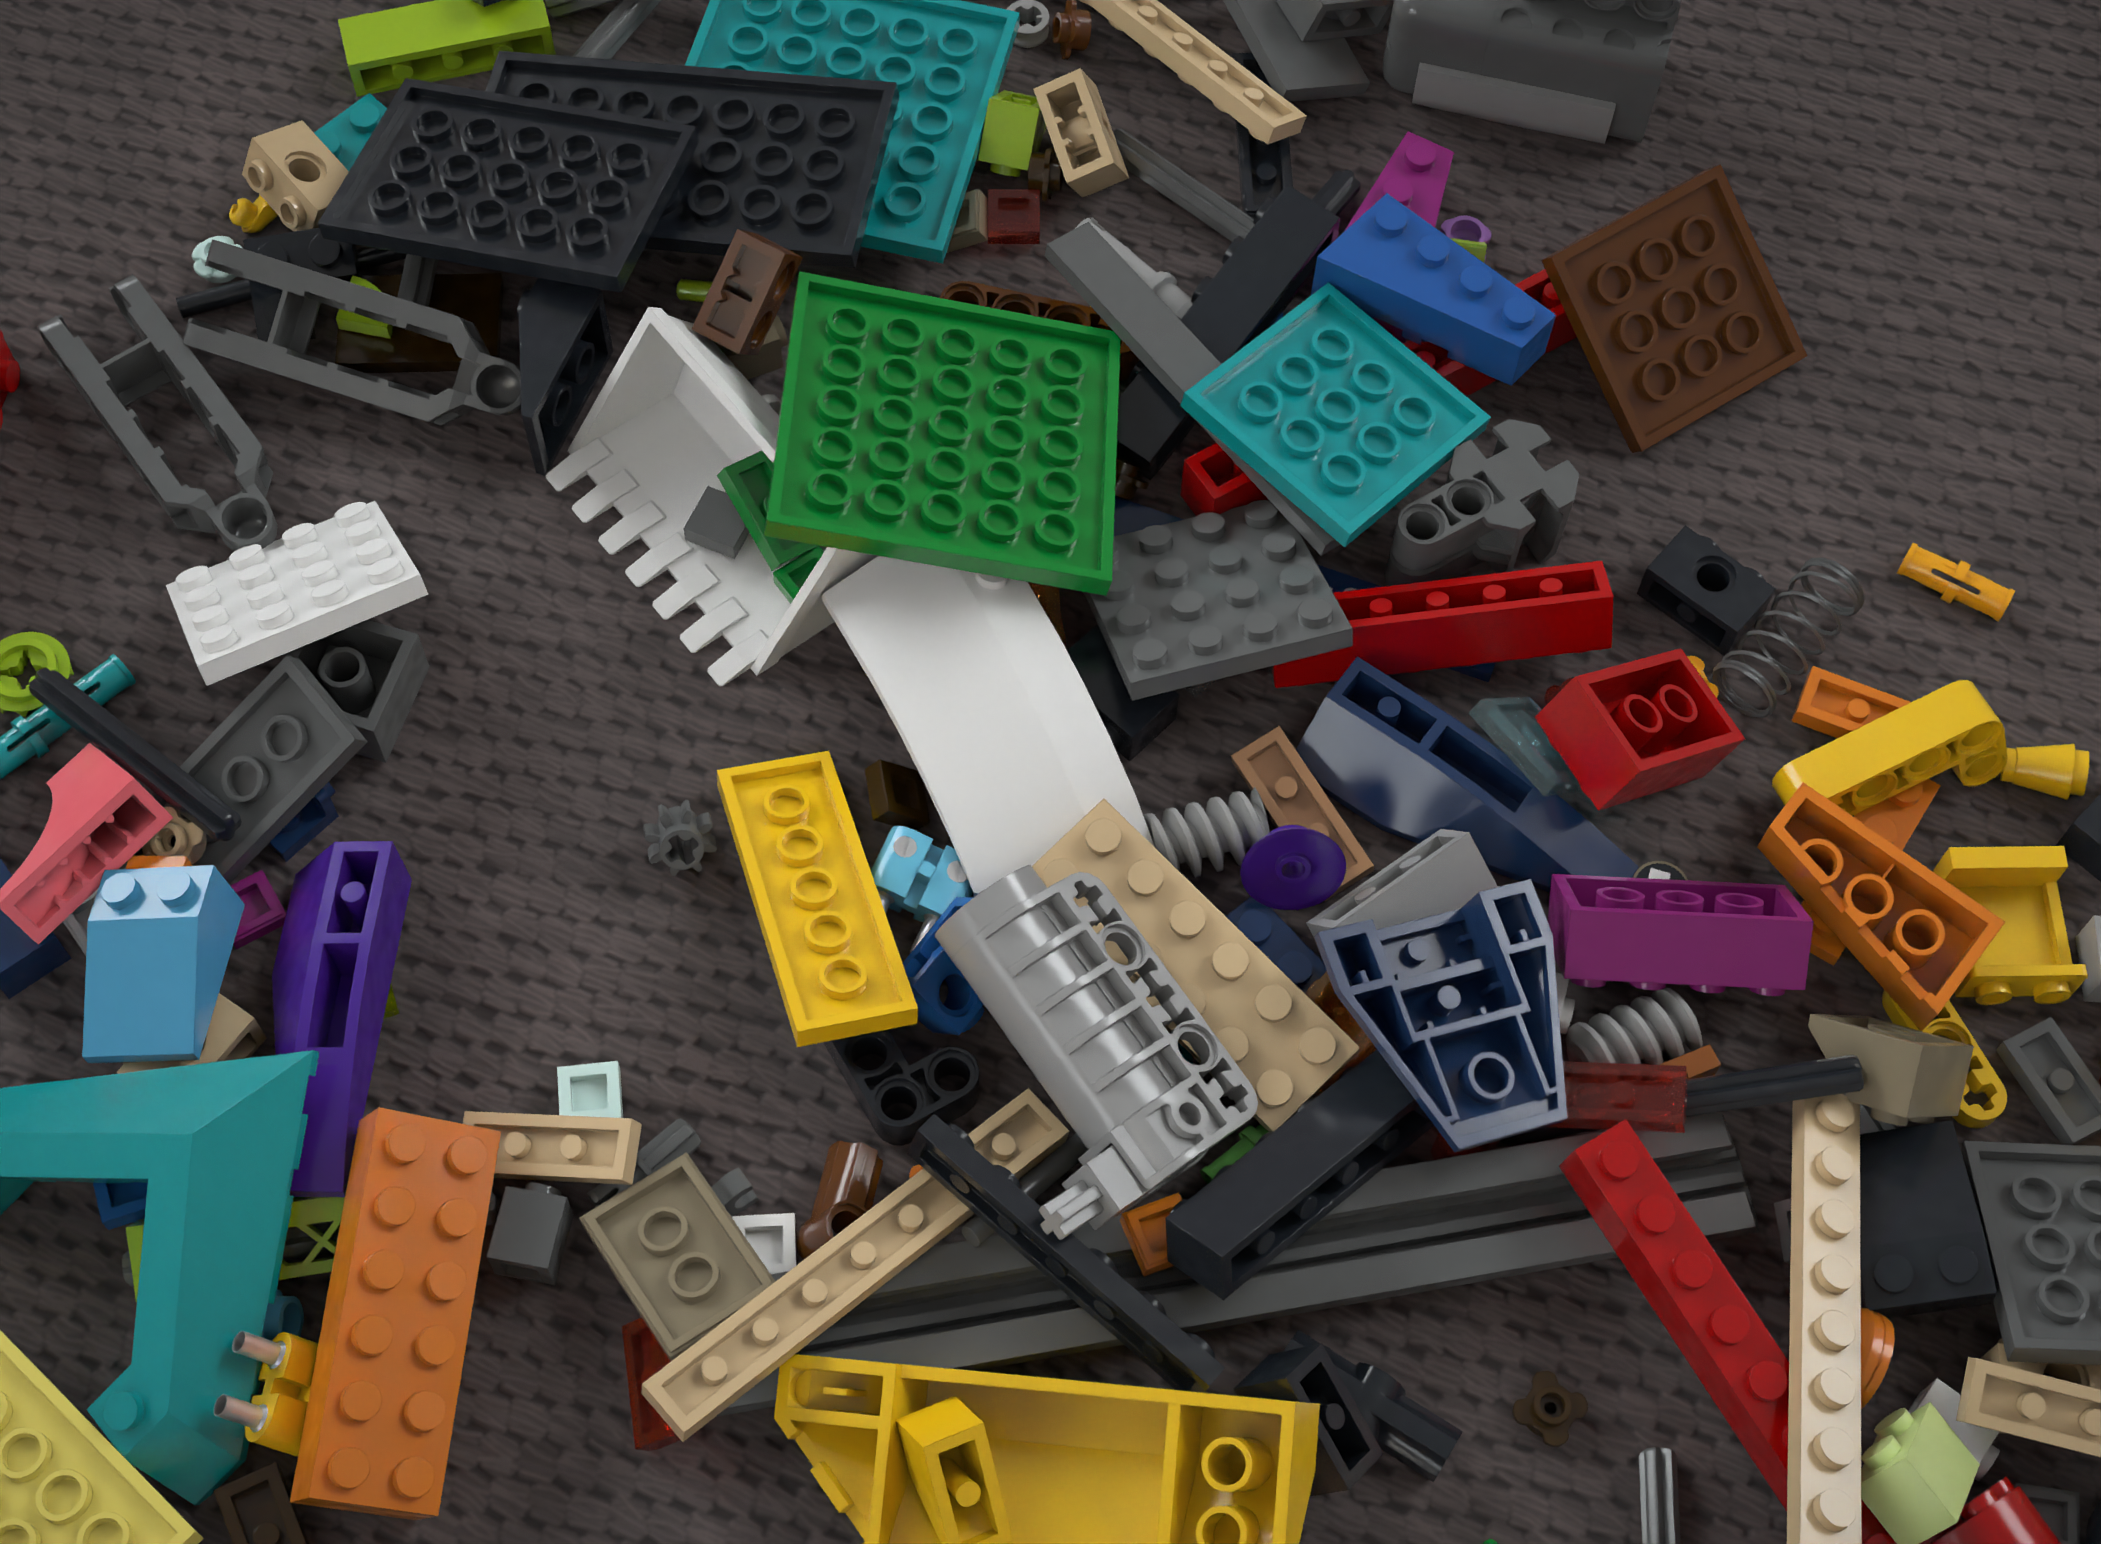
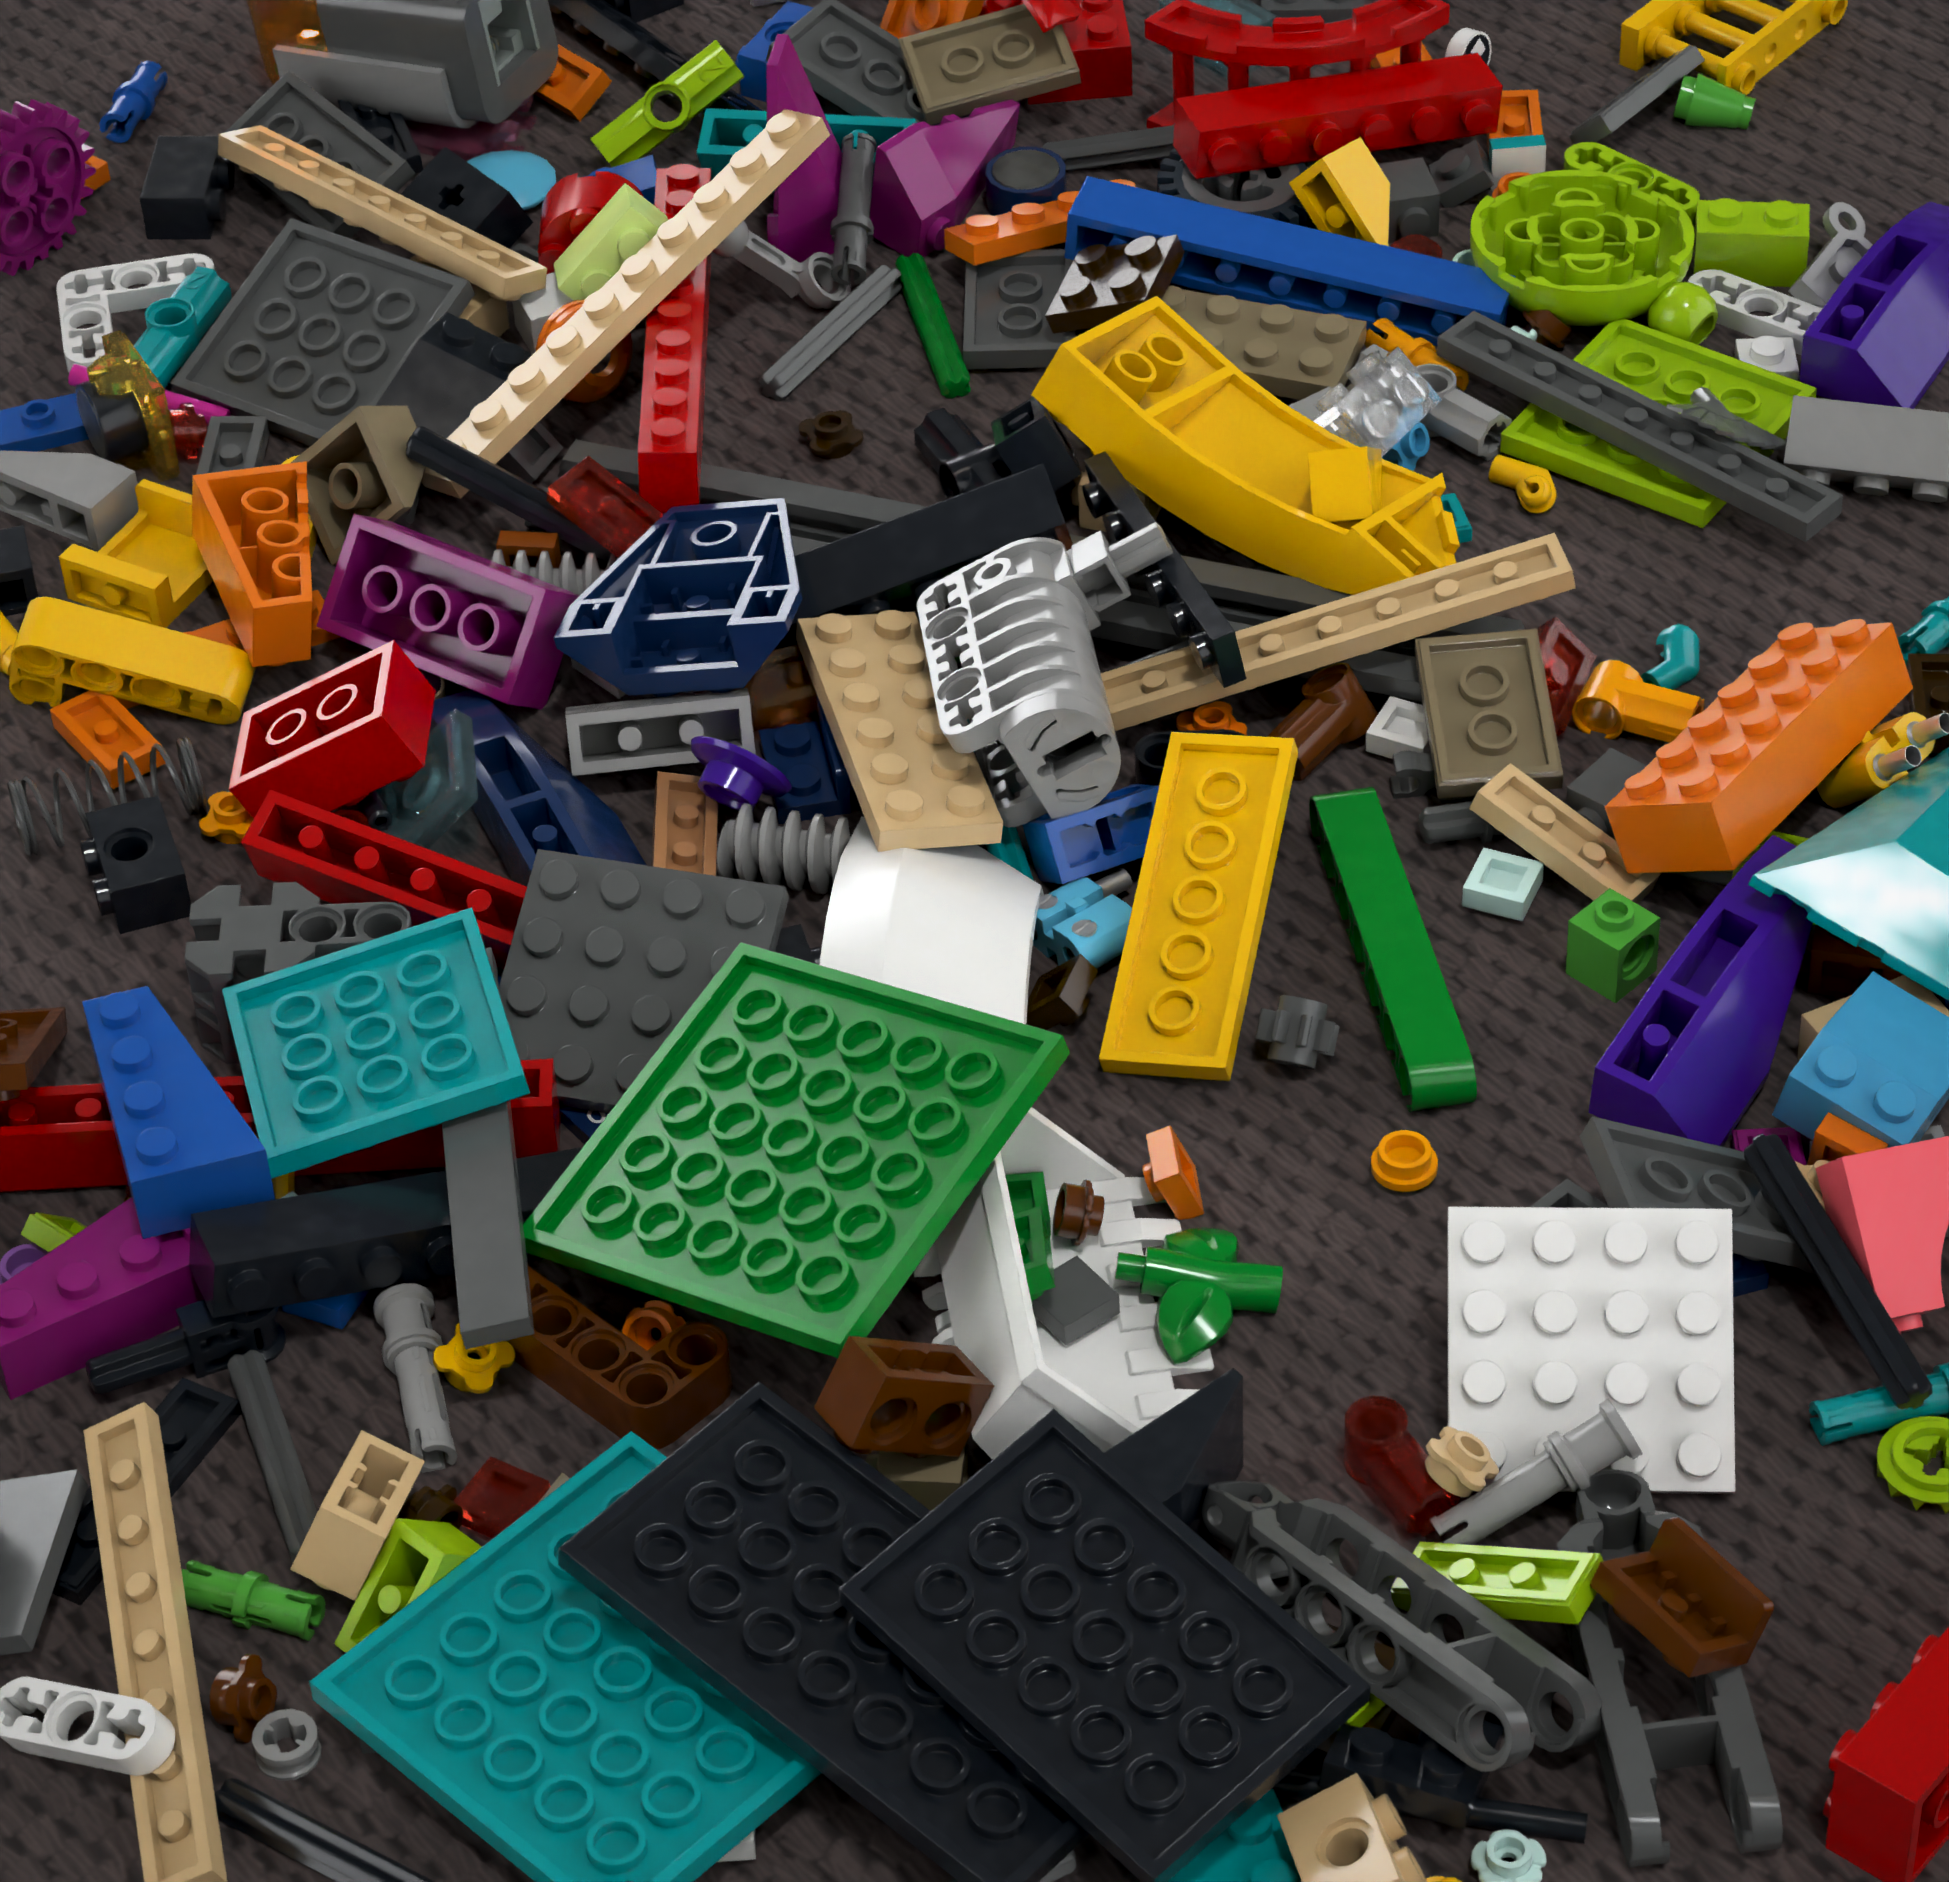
camera: 145 degrees left, 20 degrees down
(144, 399) = (1686, 1601): none -> reddish brown bracket
(283, 509) = (1566, 1462): none -> light grey pin
(295, 412) = (1513, 1580): none -> lime tile
(370, 482) = (1459, 1462): none -> tan plate
(415, 490) = (1392, 1463): none -> clear red piece
(457, 1049) = (1612, 945): none -> bright green brick
(539, 768) = (1404, 1161): none -> light orange plate
(551, 1484) = (1680, 658): none -> teal arm
(571, 1381) = (1620, 701): none -> light orange piece
(637, 582) = (1199, 1287): none -> green plant
(662, 982) = (1394, 945): none -> green beam
(705, 662) = (1172, 1174): none -> orange plate
(754, 586) = (1077, 1212): none -> reddish brown plate
(1137, 93) = (252, 1600): none -> bright green pin

